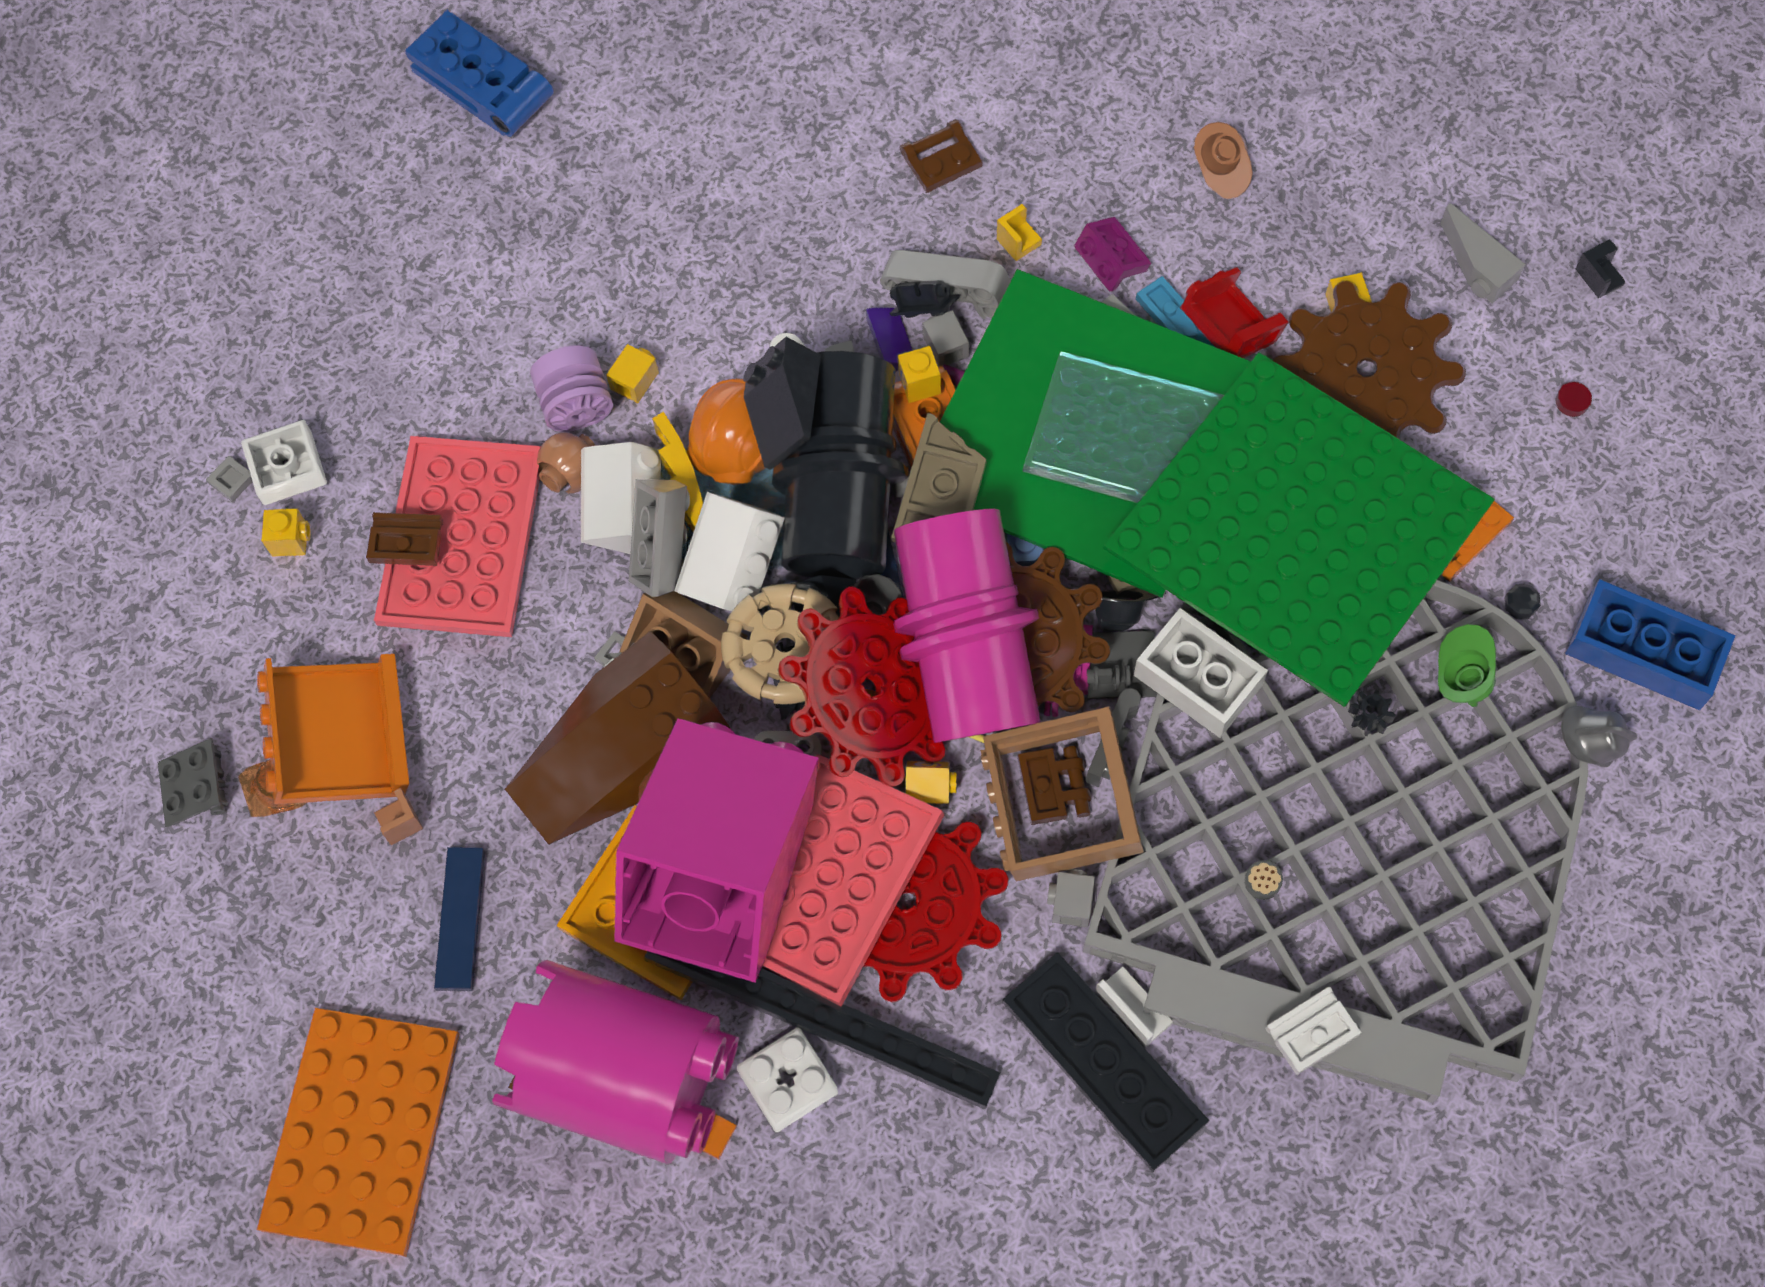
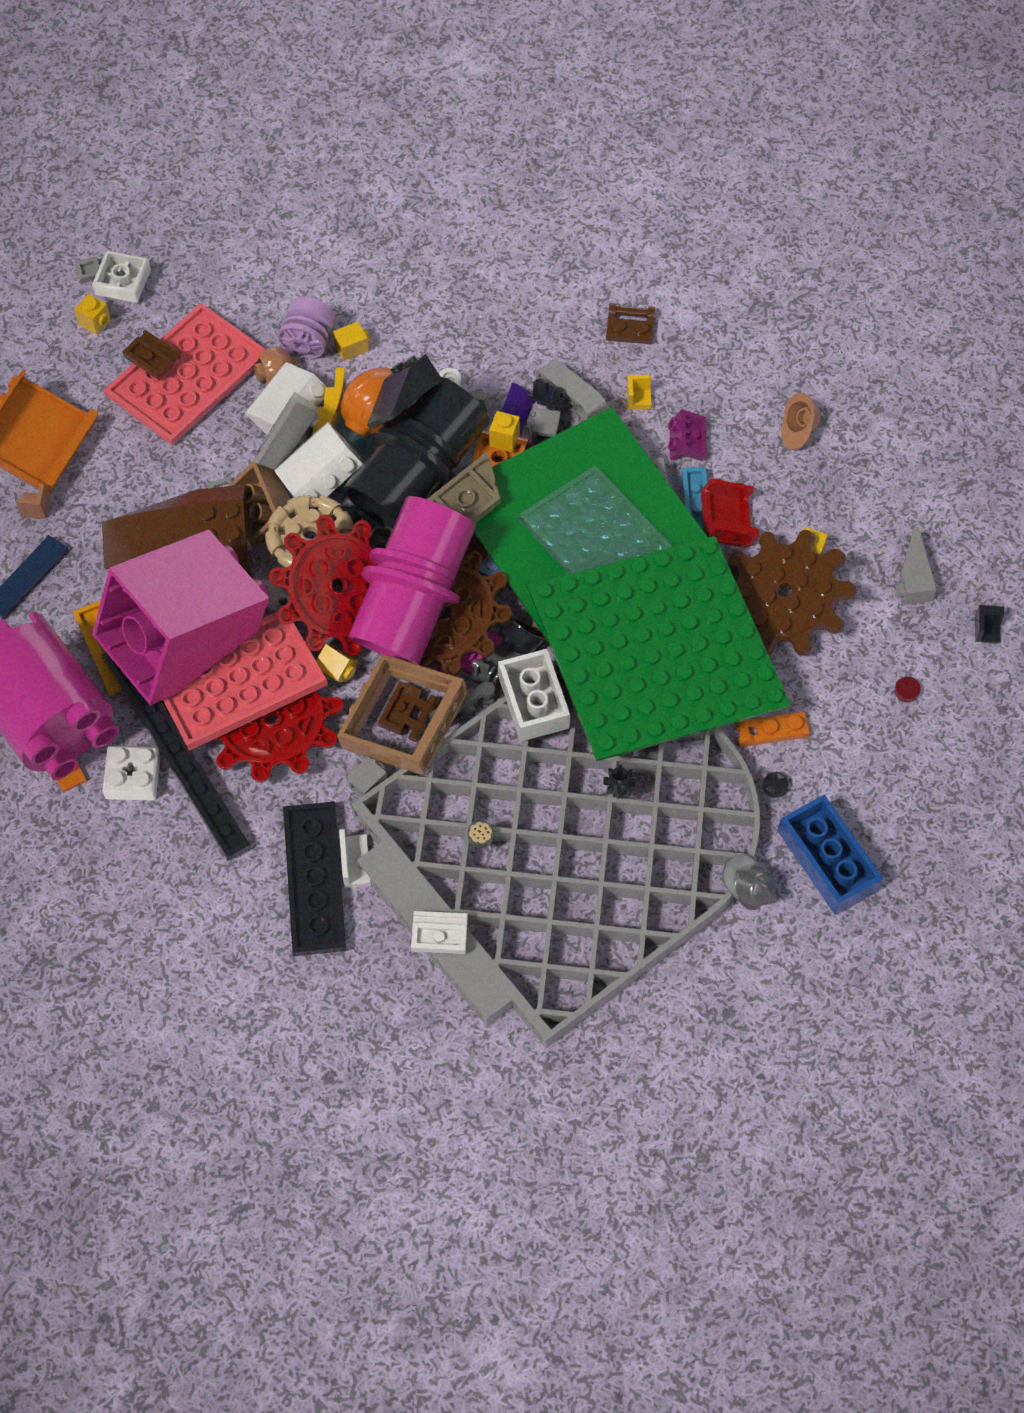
camera: 30 degrees right, 5 degrees down
(478, 74) = (395, 124): blue hinge -> none
(1467, 665) = (696, 791): bright green piece -> none

